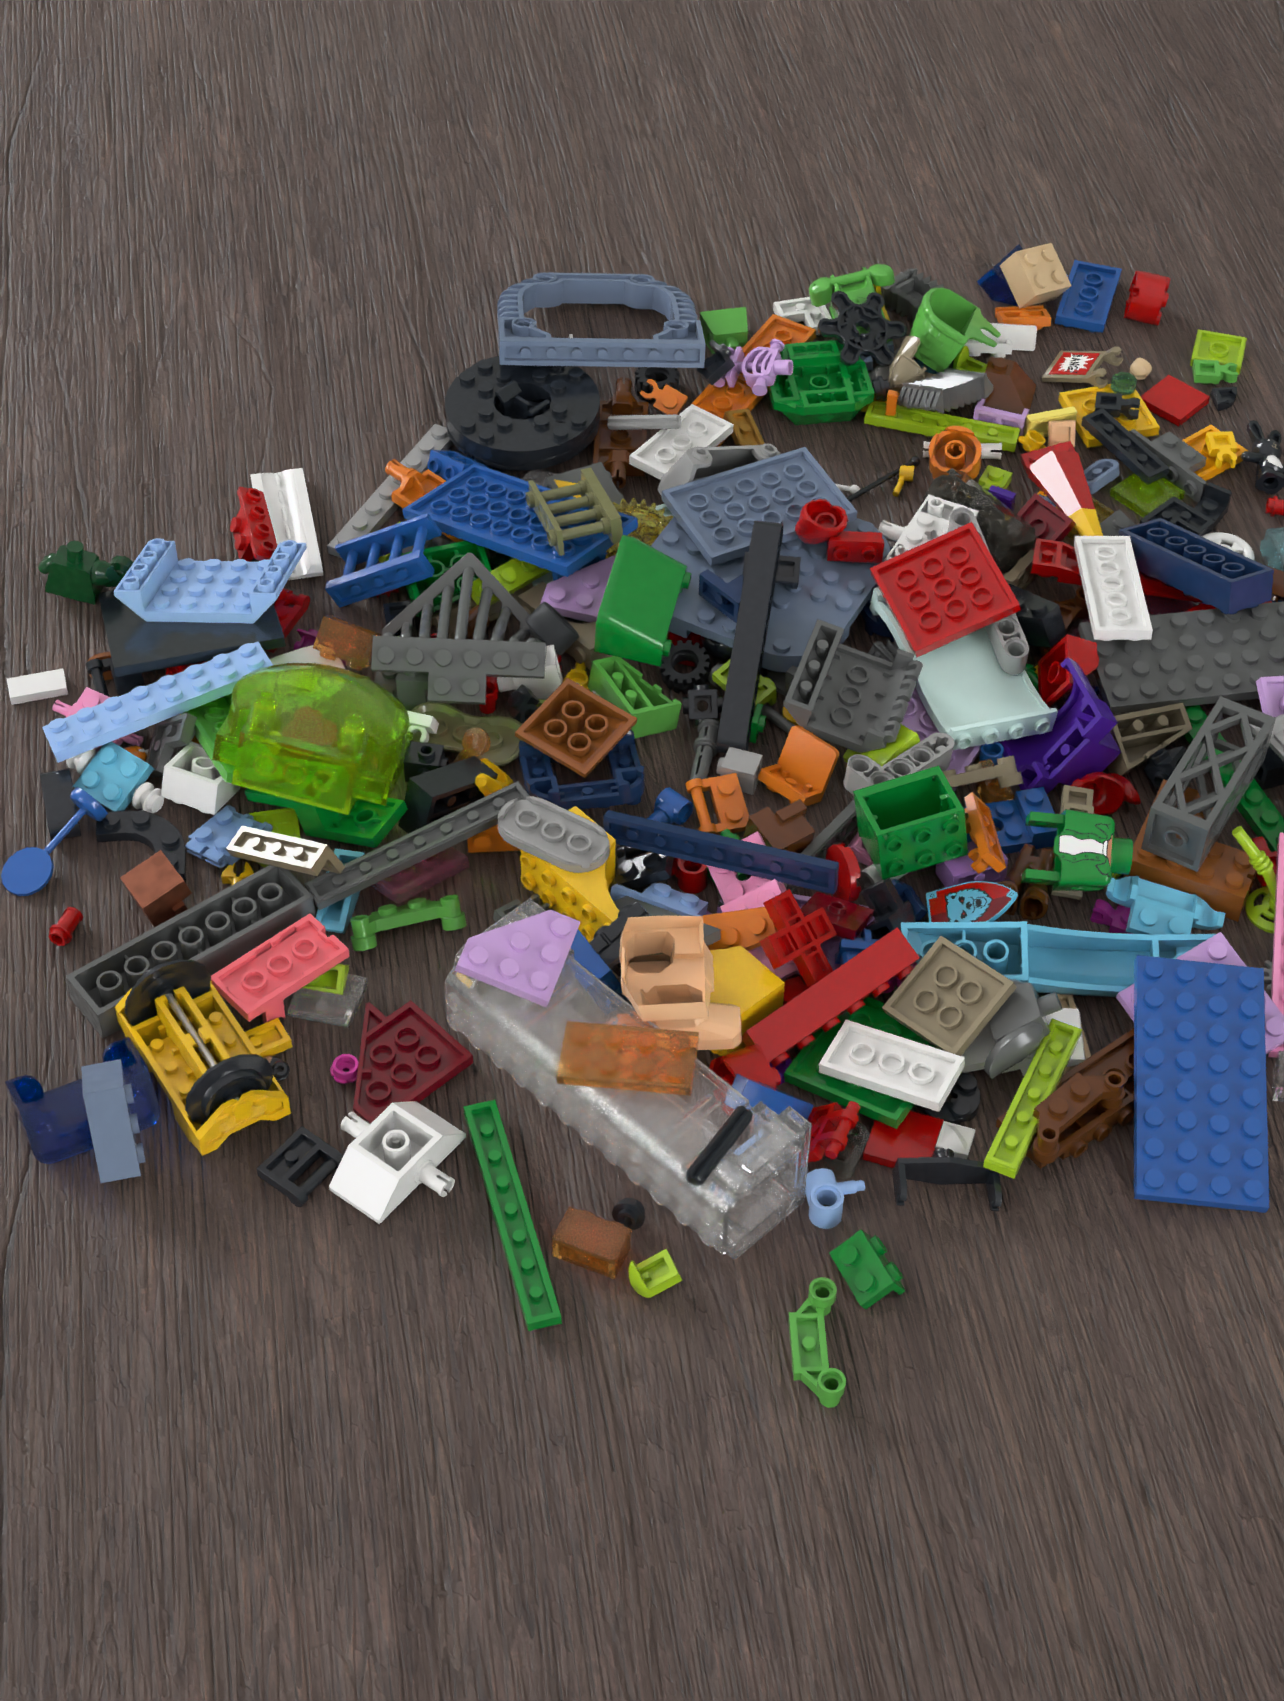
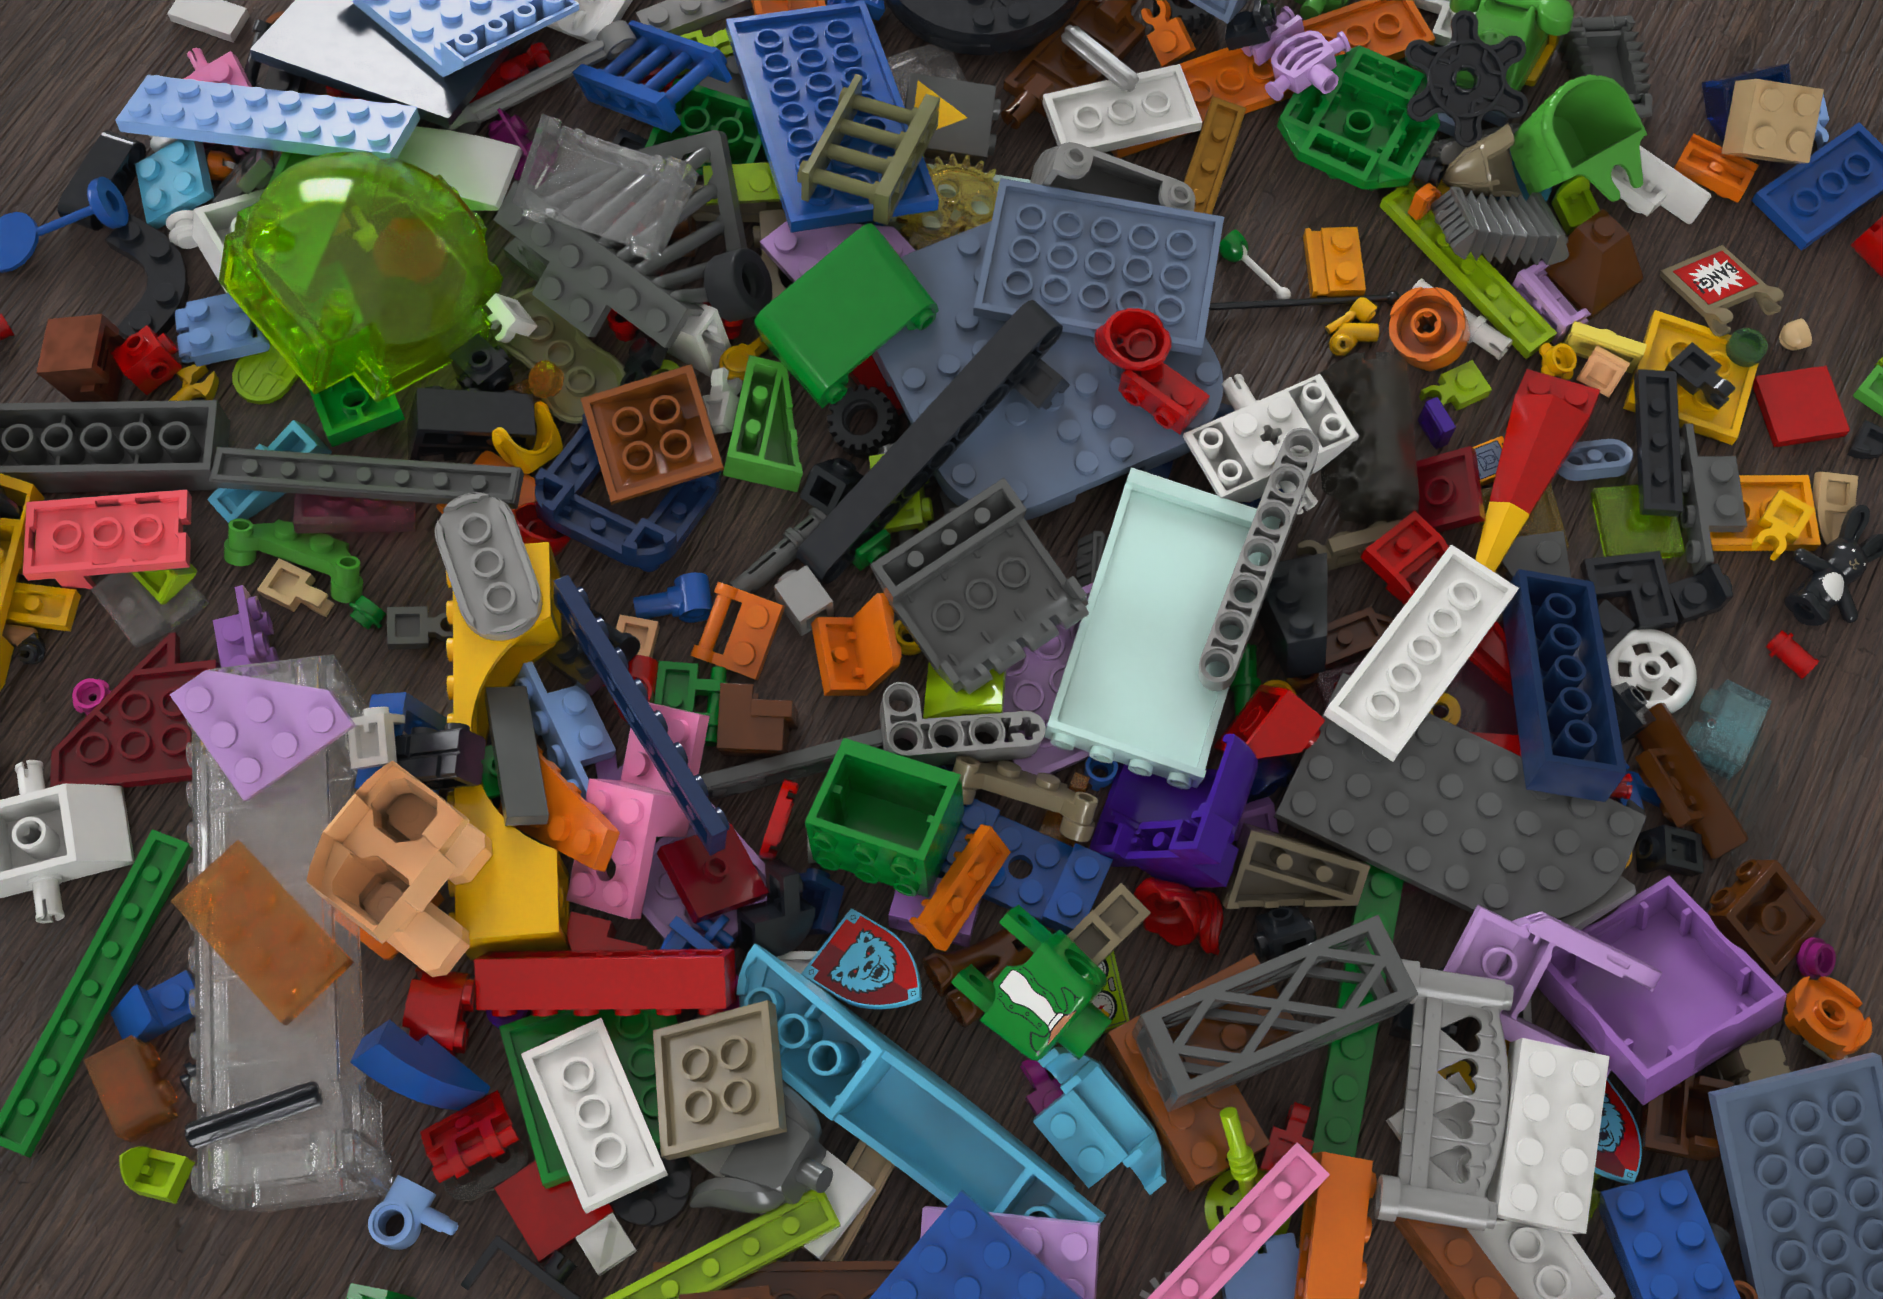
camera: 35 degrees right, 20 degrees up
(201, 873) = (147, 359): none -> red brick
(284, 851) = (223, 397): fence -> none
(332, 566) = (608, 44): none -> light grey piece
(345, 641) = (503, 152): clear orange brick -> none
(417, 939) = (291, 586): none -> tan plate
(422, 976) = (244, 636): none -> medium lavender bracket
(443, 602) = (603, 188): none -> clear windscreen
(478, 923) = (366, 613): none -> green plate
(558, 1194) = (154, 1010): none -> blue slope
(587, 947) = (373, 738): none -> white bracket
(720, 594) = (943, 358): dark blue slope -> none
(798, 937) = (613, 888): red plate -> none
(866, 460) = (1334, 262): none -> light orange plate
(910, 488) = (1350, 334): none -> yellow arm
(944, 589) = (1196, 531): red plate -> none
(1233, 422) = (1832, 498): none -> tan plate

